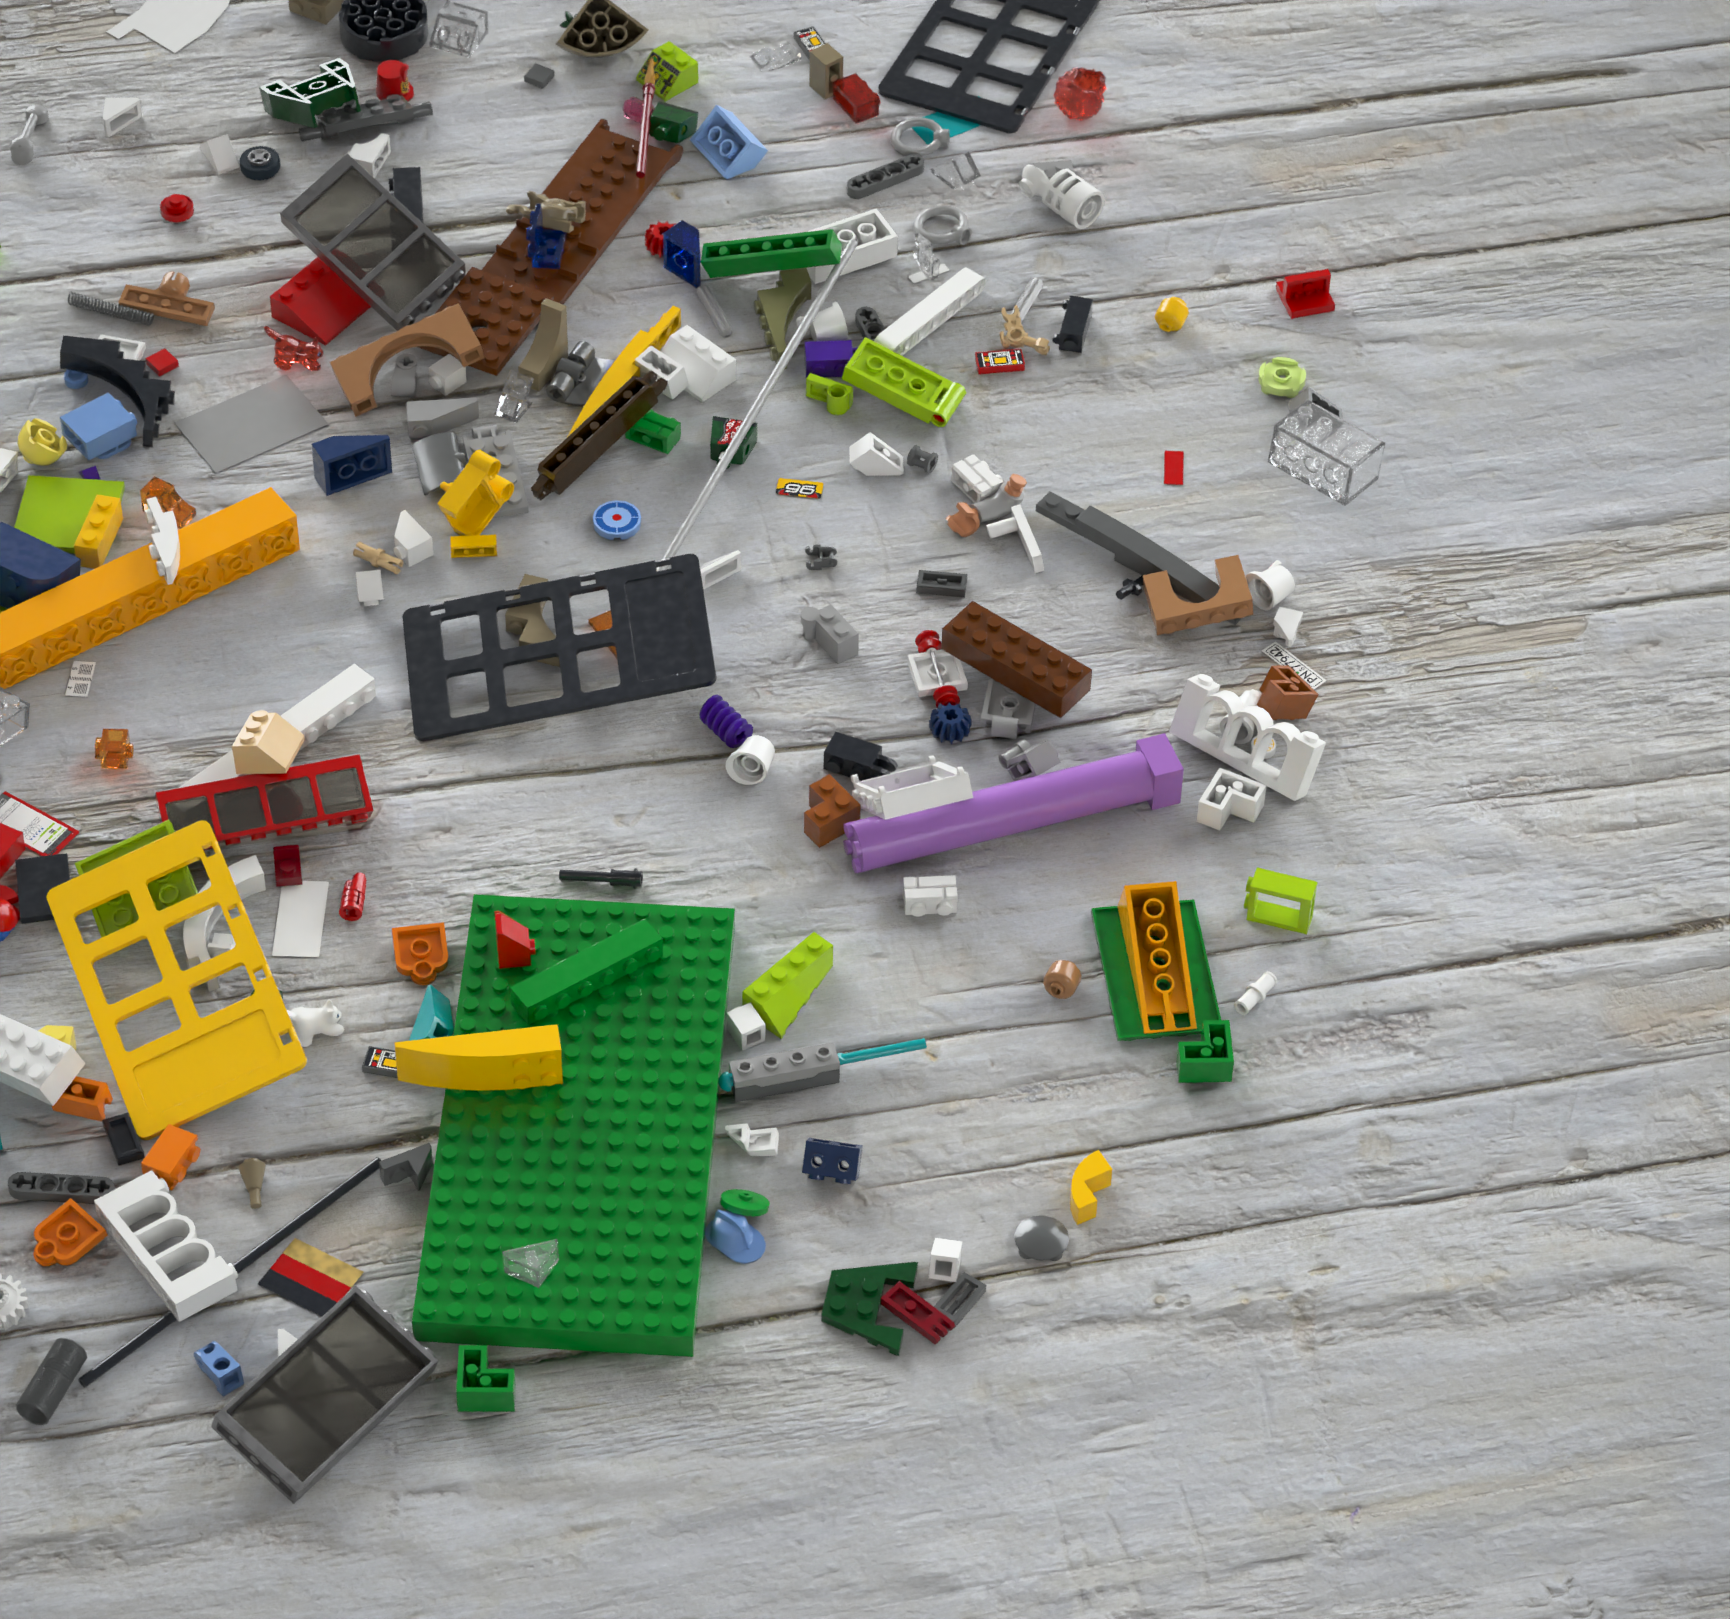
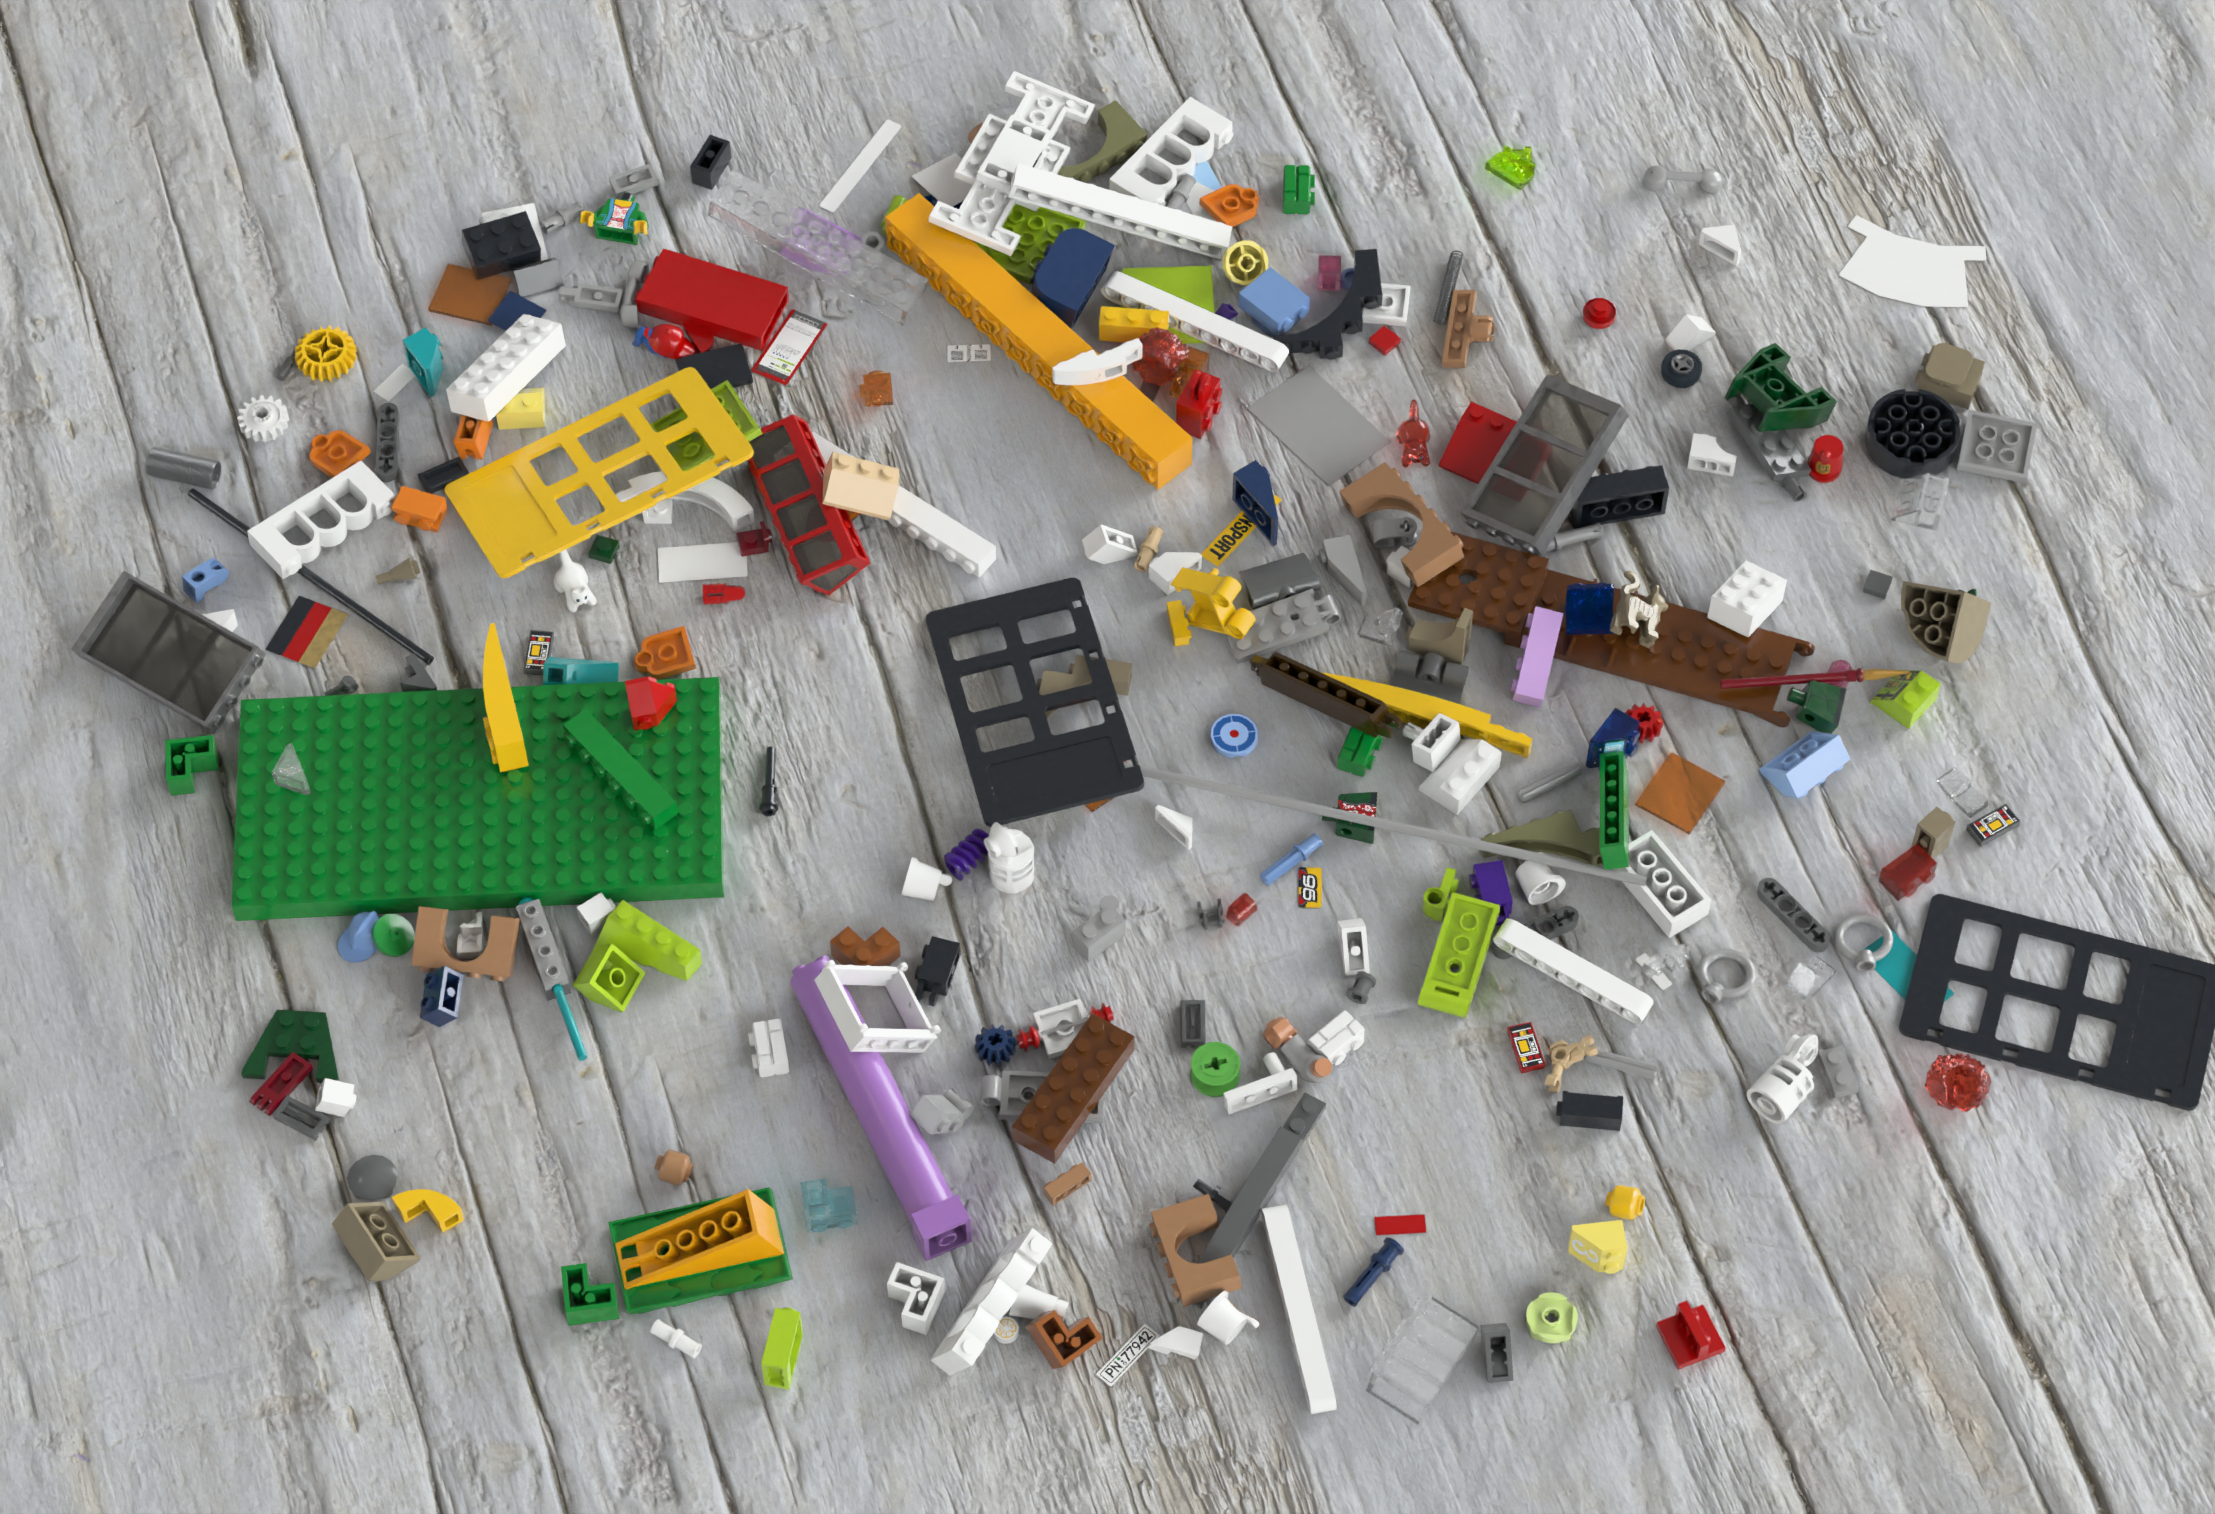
camera: 85 degrees right, 10 degrees up
(68, 386) = (1329, 272): none -> clear pink brick
(110, 481) = (1197, 321): none -> white beam
(134, 505) = (1160, 356): none -> clear red hair
(211, 486) = (1199, 403): none -> red brick
(375, 503) = (1230, 538): none -> yellow sticker
(396, 1236) = (346, 683): none -> dark grey hand
(547, 147) = (1747, 598): none -> white brick
(581, 291) = (1537, 656): none -> lavender brick
(736, 223) = (1680, 793): none -> clear orange piece
(747, 679) = (1009, 859): none -> white cylinder
(764, 486) = (1291, 859): none -> medium blue axle
(793, 1112) = (496, 960): none -> medium nougat arch
(822, 532) = (1241, 909): none -> clear red brick
(824, 1021) = (609, 977): none -> lime slope
(999, 567) = (1210, 1057): none -> bright green piece
(1110, 687) = (1067, 1183): none -> medium nougat piece
(1123, 860) = (826, 1207): none -> clear light blue brick
(1123, 1235) = (375, 1240): none -> dark tan slope
(1217, 480) = (1379, 1263): none -> dark blue pin
(1221, 326) = (1599, 1245): none -> light yellow slope
(1262, 537) = (1298, 1309): none -> white beam

